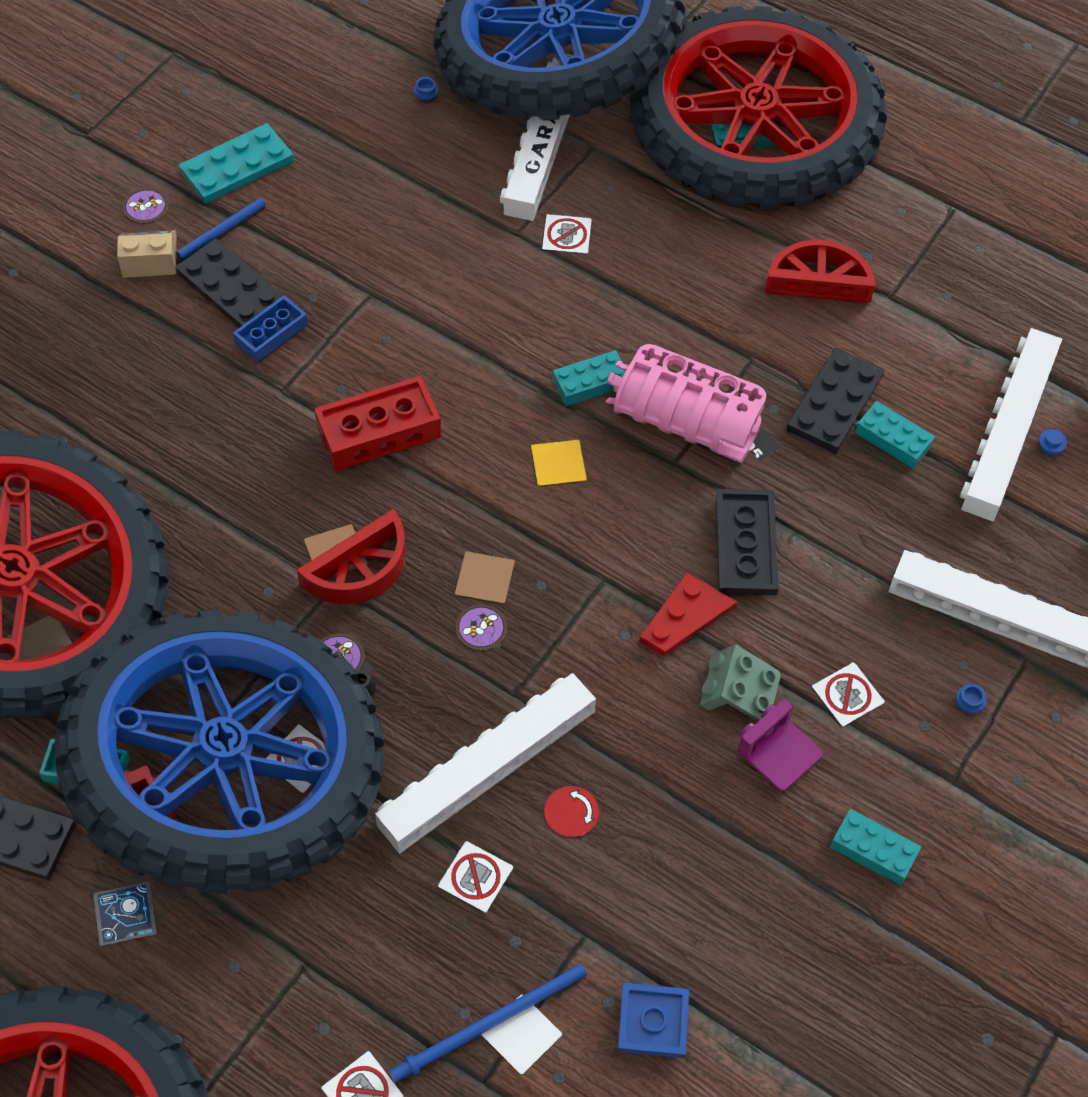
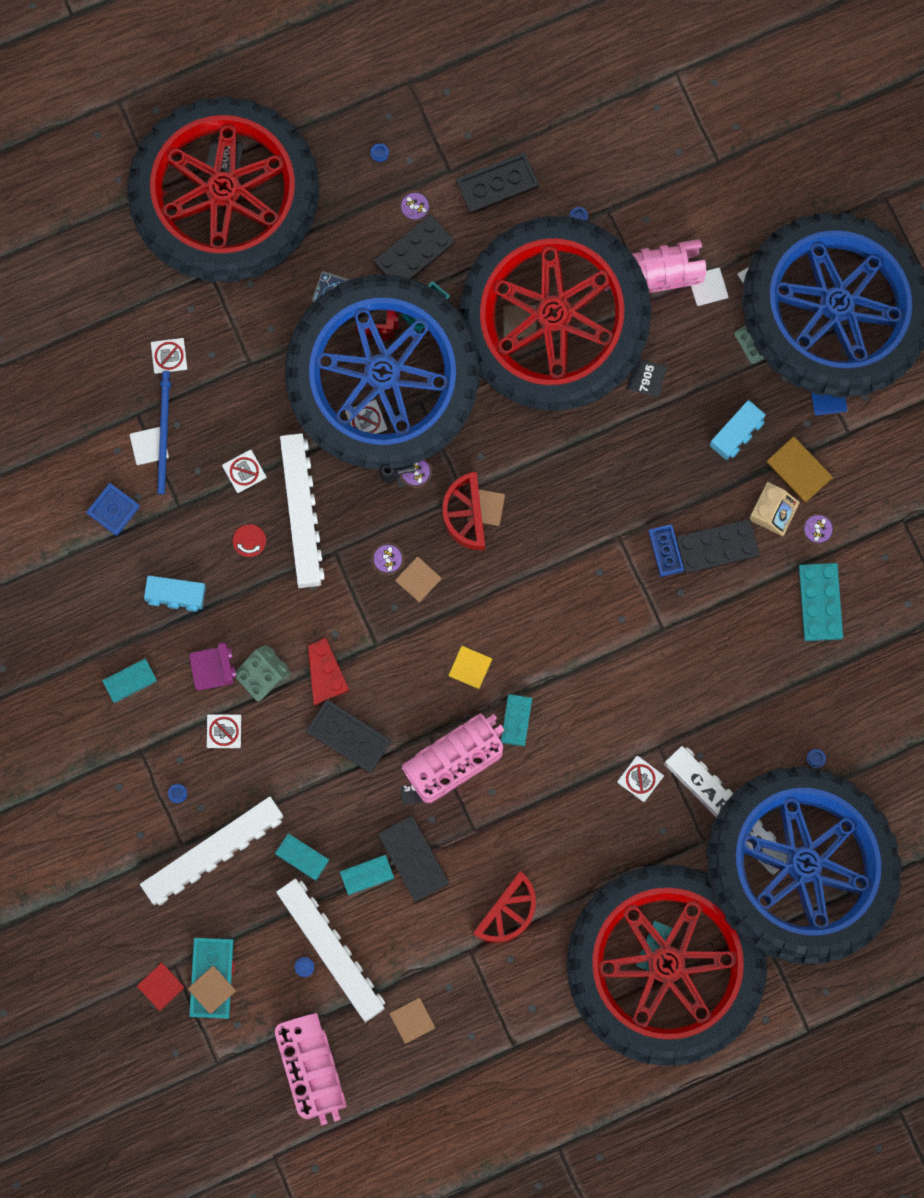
camera: 120 degrees right, 20 degrees up
(63, 327) = (738, 430): none -> medium azure brick
(80, 251) = (799, 470): none -> pearl gold tile
(220, 229) = (768, 564): blue bar -> none
(378, 423) = (541, 579): red brick -> none
(715, 857) = (174, 593): none -> medium azure brick
(931, 513) = (302, 857): none -> teal piece
(1012, 311) = (412, 1020): none -> medium nougat sticker

